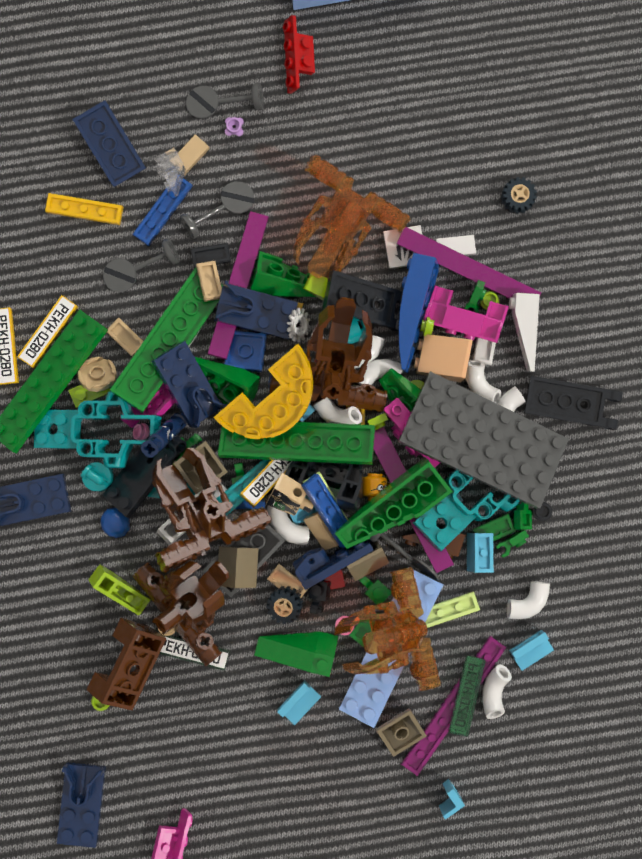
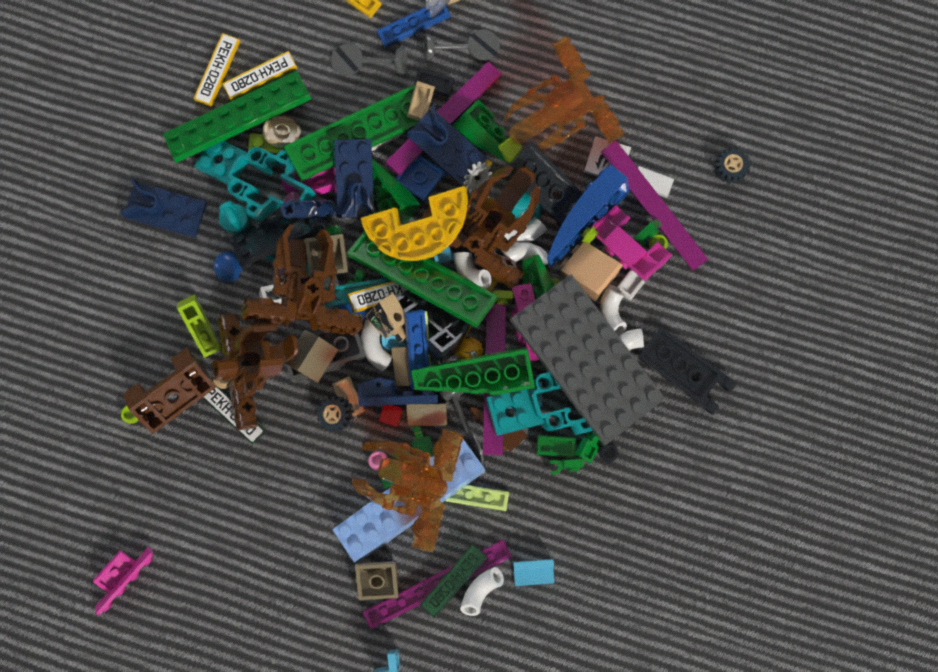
camera: 30 degrees right, 5 degrees down
(81, 804) = (63, 495): dark blue plate -> none
(125, 336) = (322, 111): tan tile -> none
(299, 702) = (301, 508): medium azure panel -> none
(304, 651) = (328, 462): green wedge -> none
(319, 593) = (371, 419): black plate -> none
(480, 552) = (533, 458): medium azure panel -> none
(525, 317) = (681, 273): white slope -> none
(531, 604) = (554, 530): white cylinder -> none

